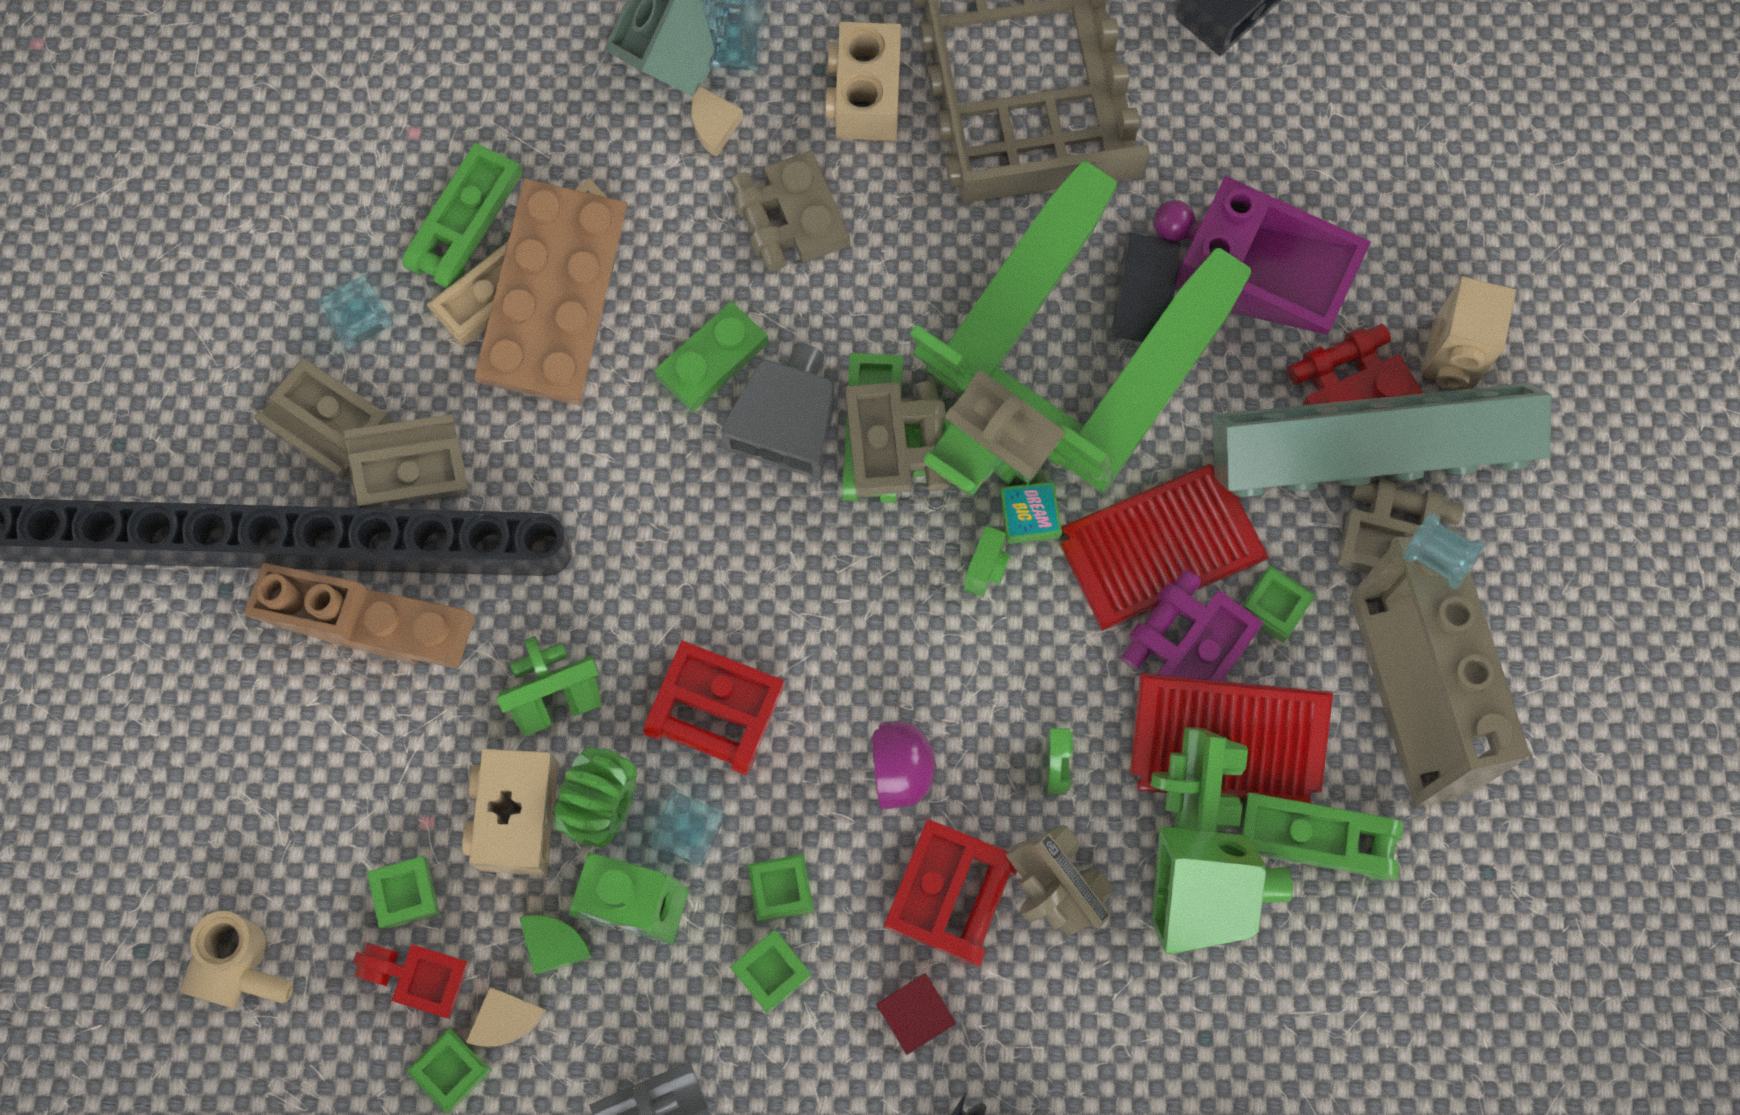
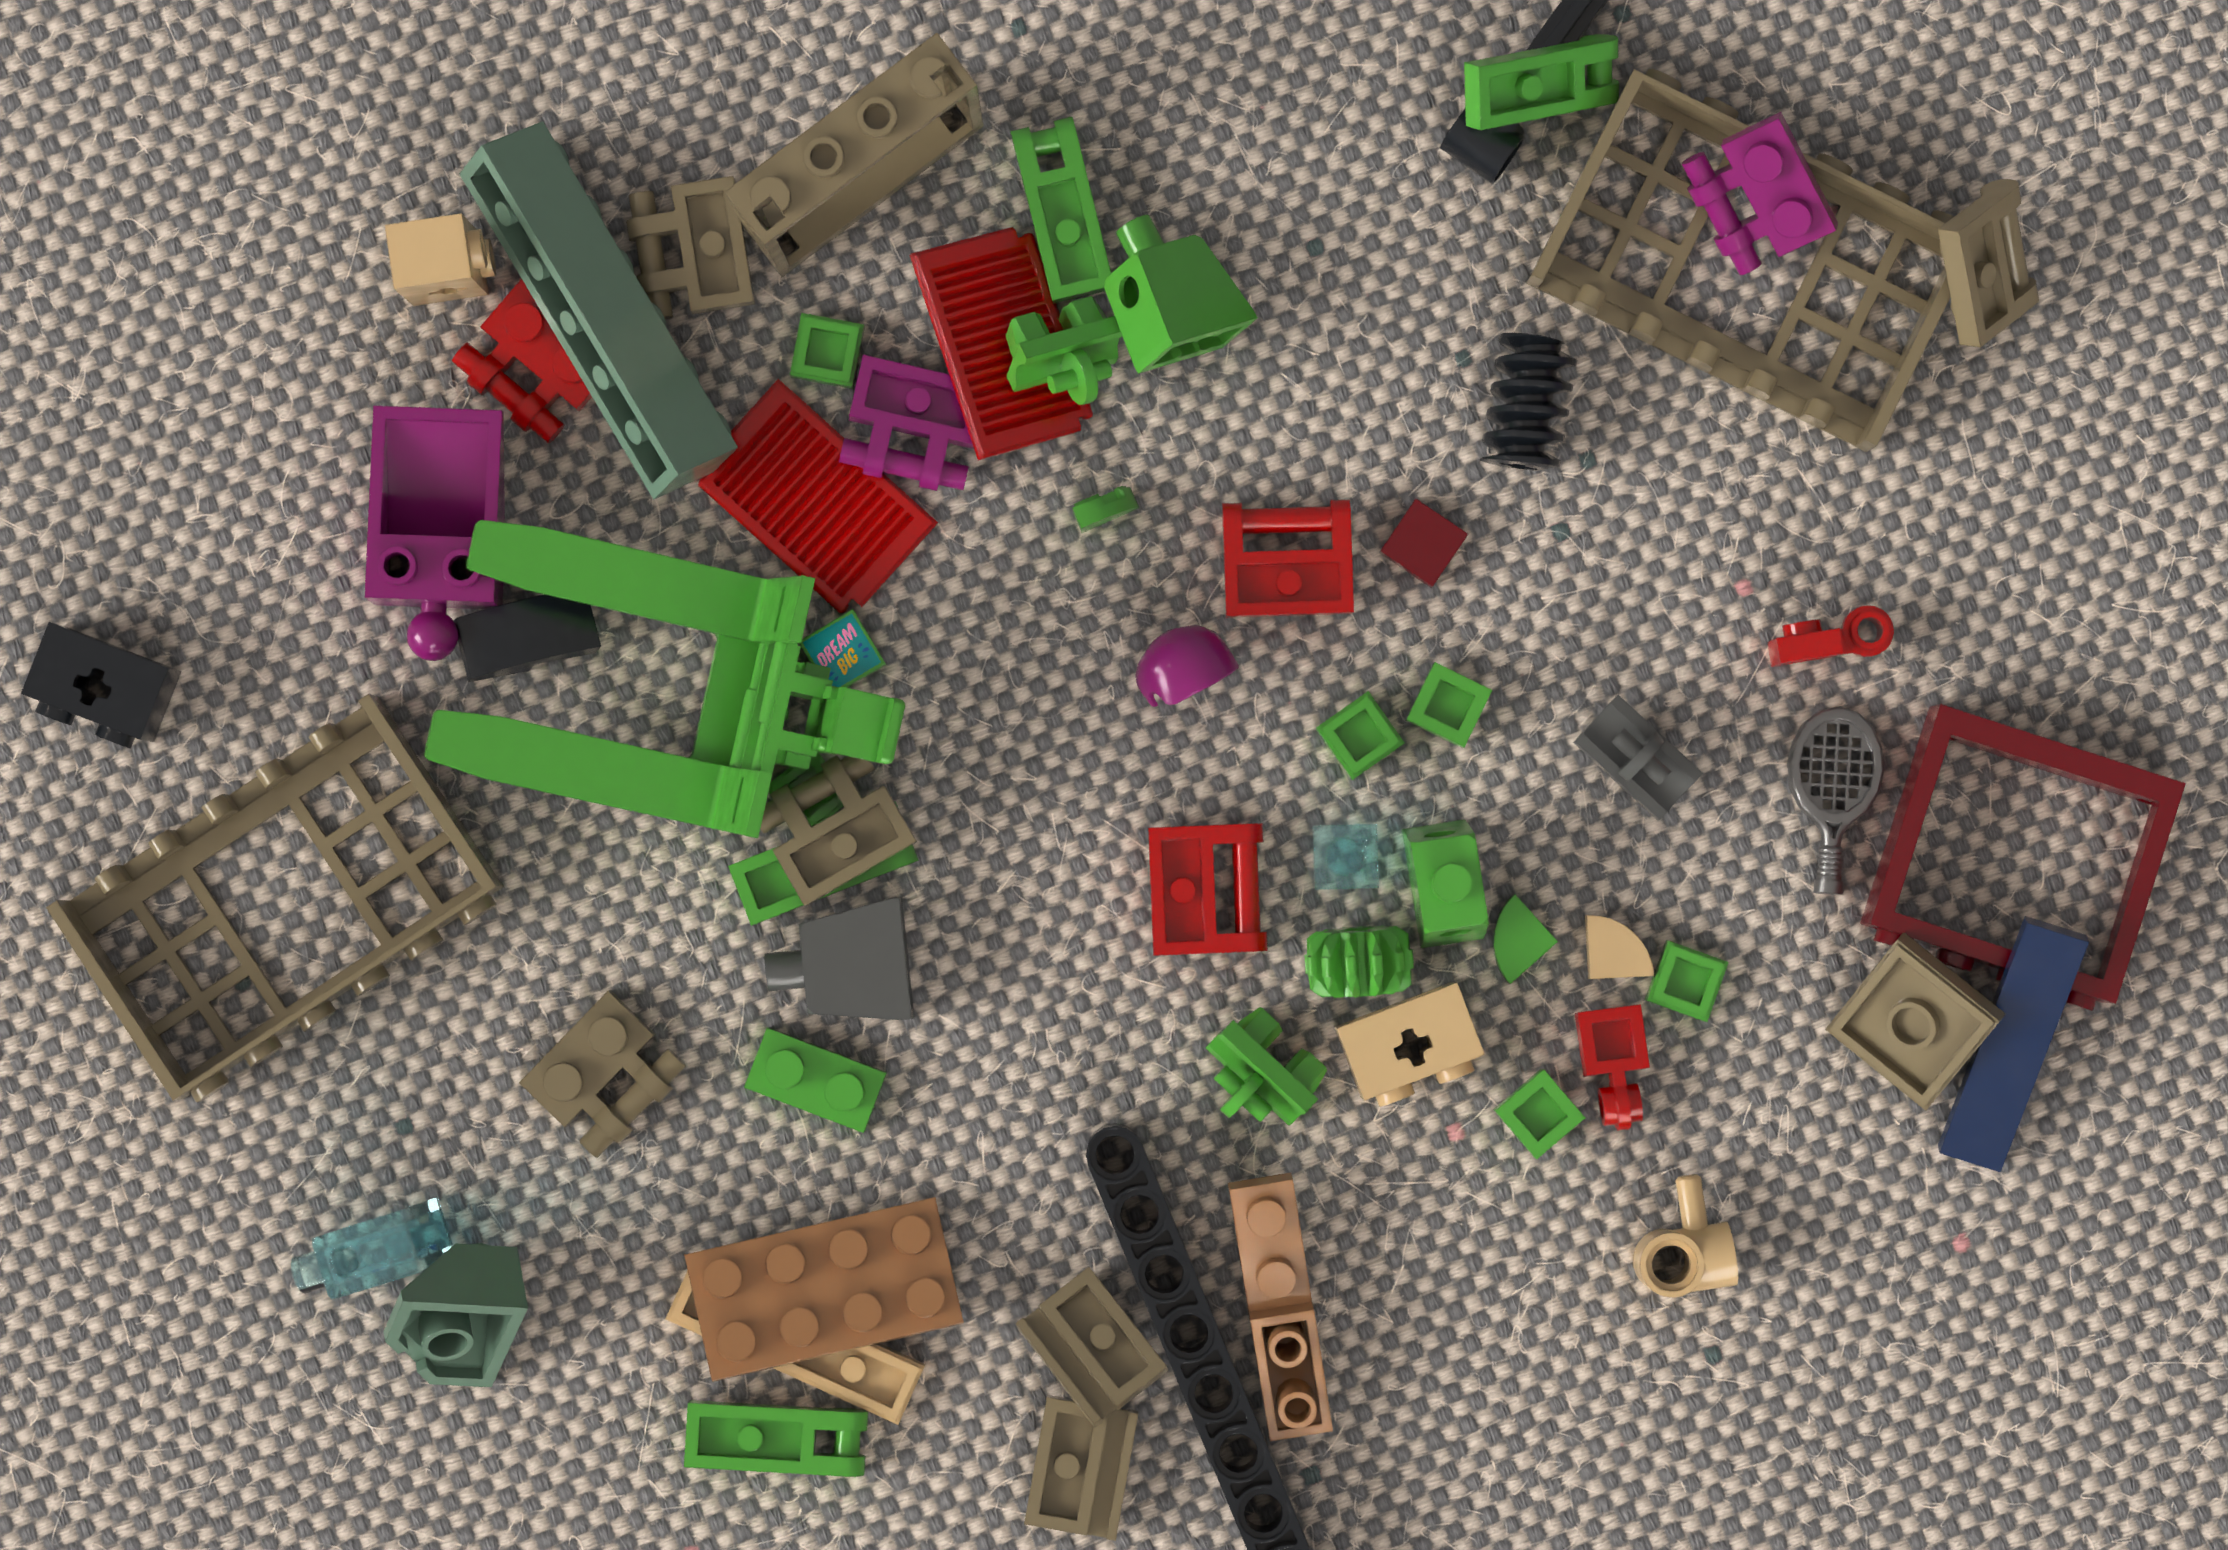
camera: 115 degrees left, 15 degrees up
(355, 312) = (943, 1497): clear light blue plate -> none
(714, 120) = (527, 1214): tan tile -> none
(865, 81) = (401, 1045): tan brick -> none
(987, 563) = (923, 671): bright green plate -> none
(1005, 425) = (818, 694): dark tan hips -> none
(1056, 886) = (1240, 458): dark tan hips -> none
(1444, 551) = (772, 192): clear light blue bush -> none

